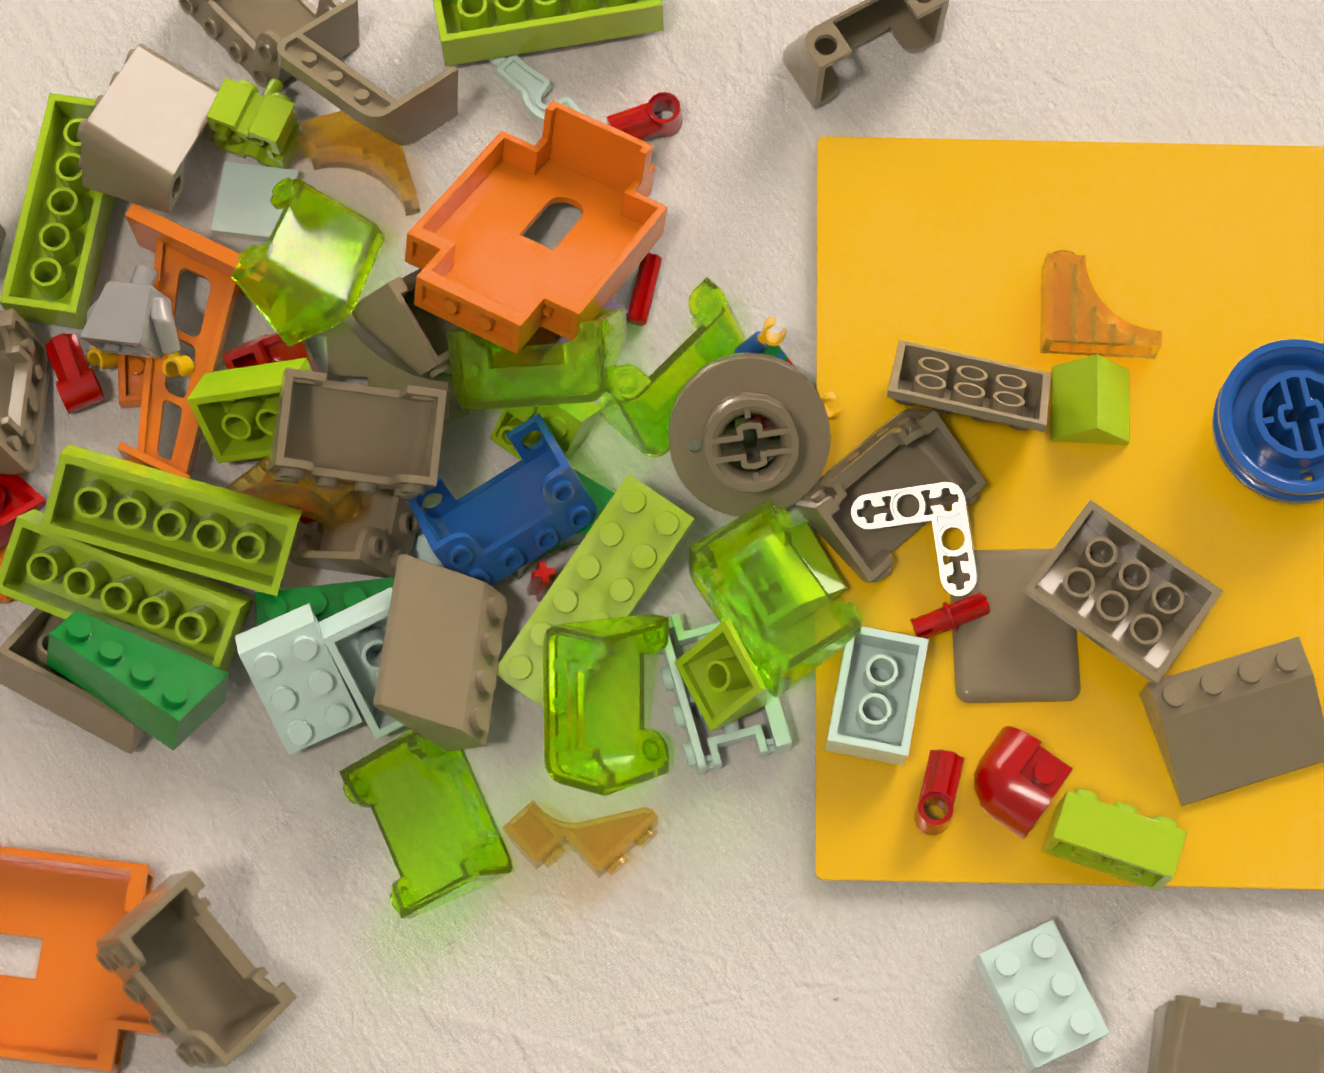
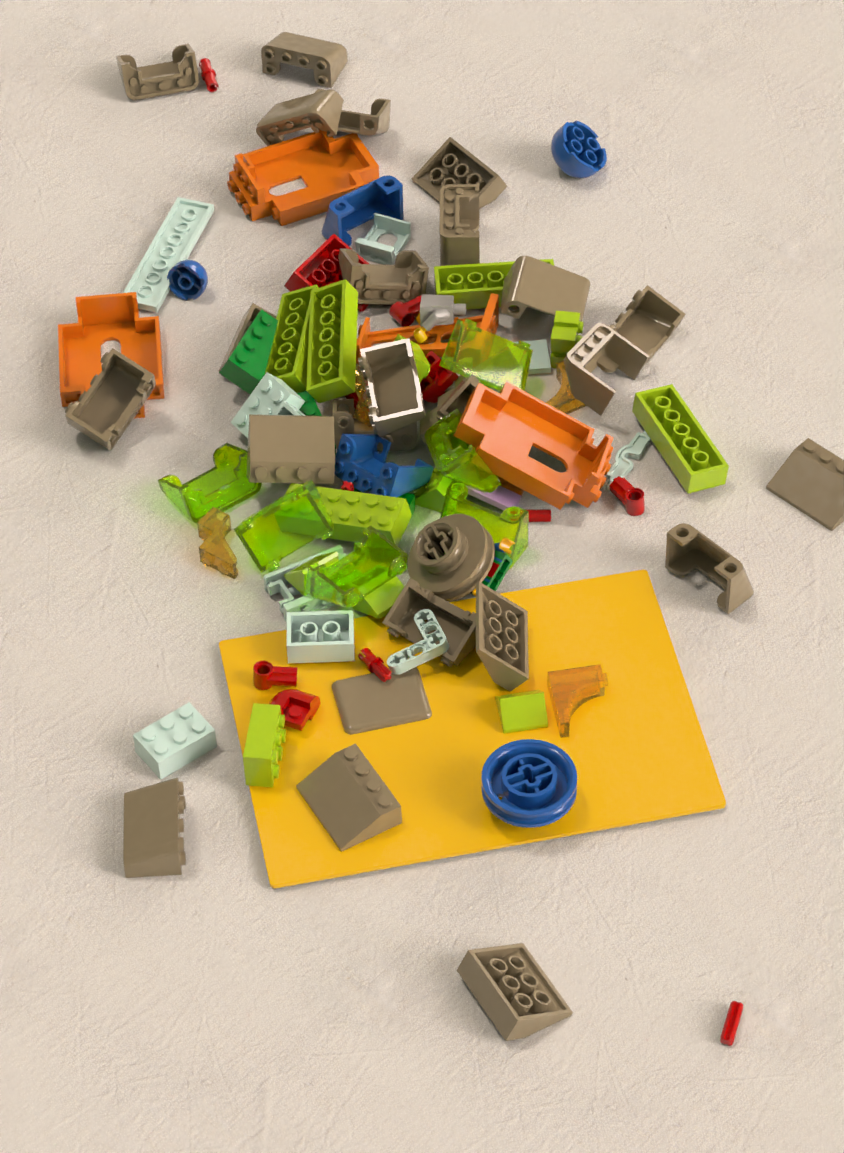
camera: 80 degrees right, 25 degrees down
(1123, 592) = (405, 727): dark tan slope -> none

